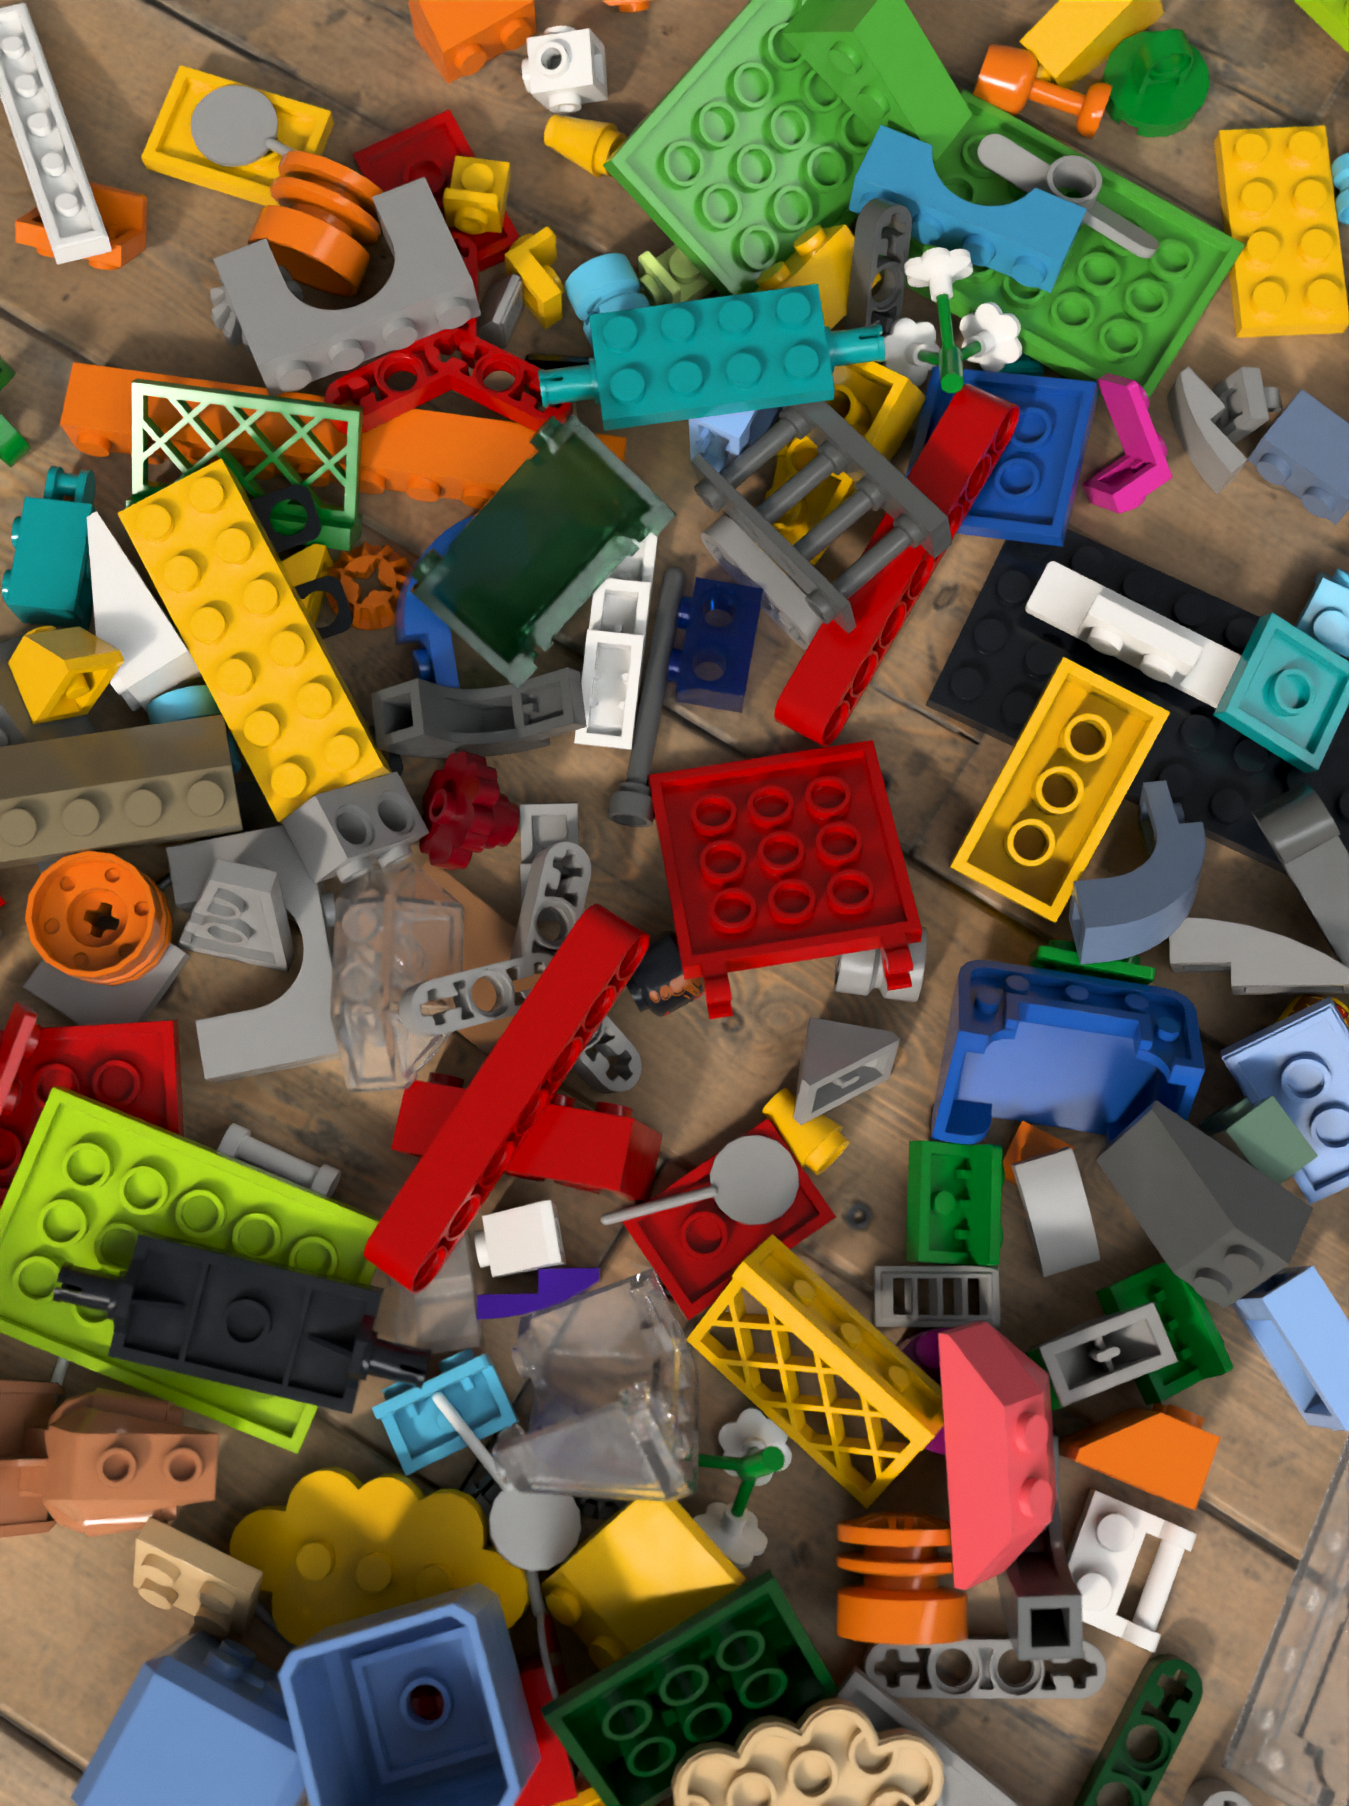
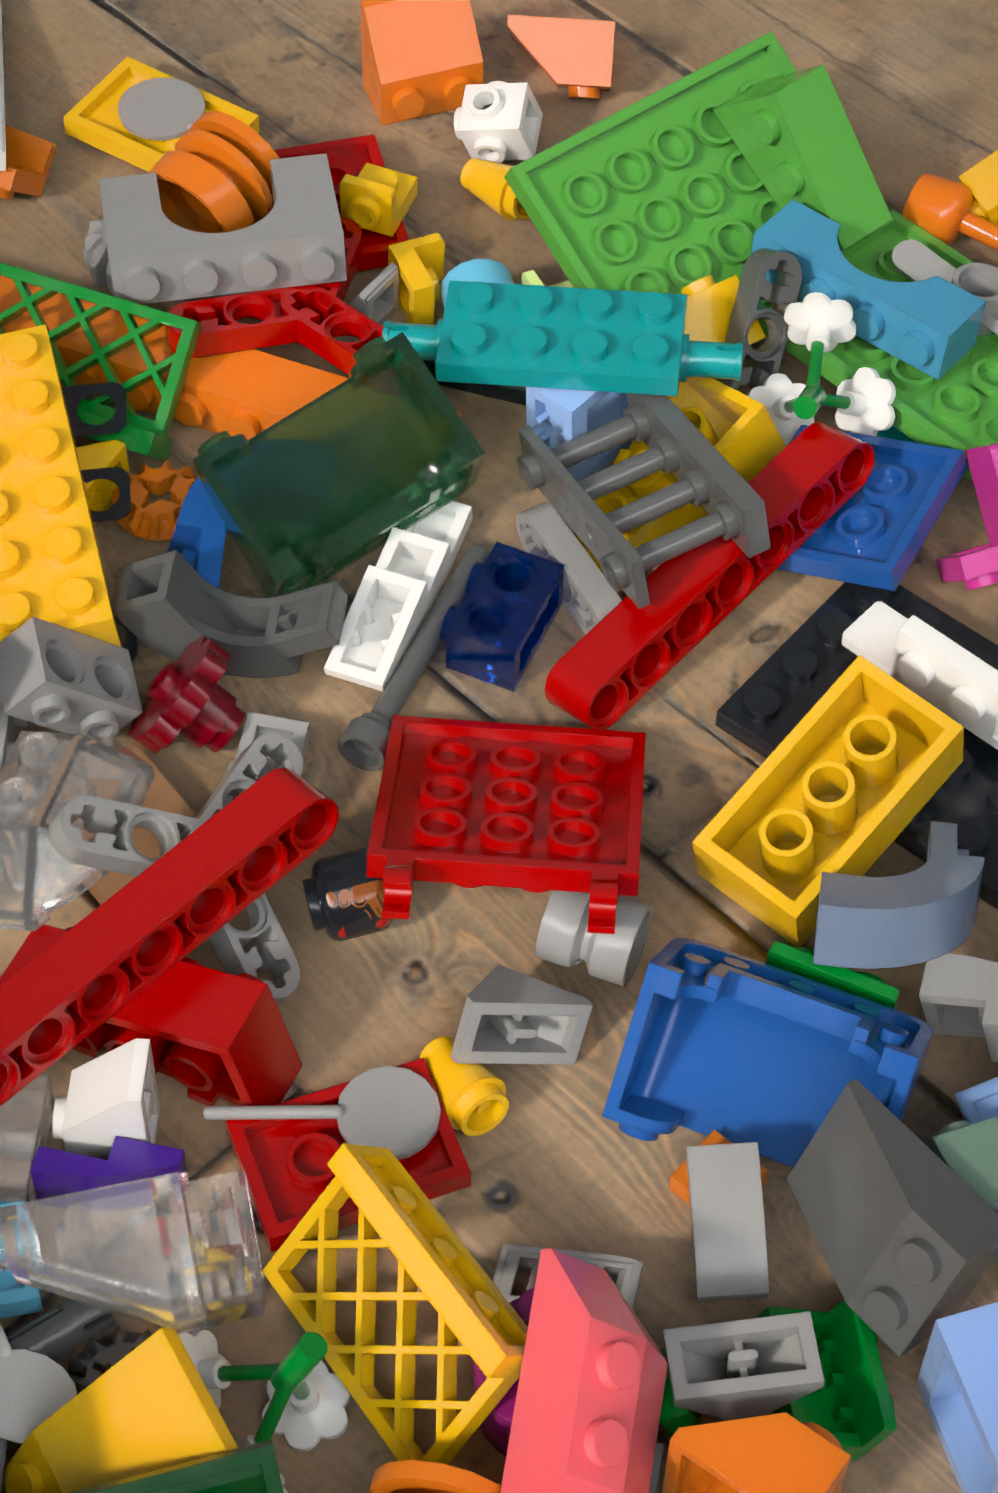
camera: 15 degrees right, 25 degrees down
(954, 1203) = (610, 1189): green bracket -> none

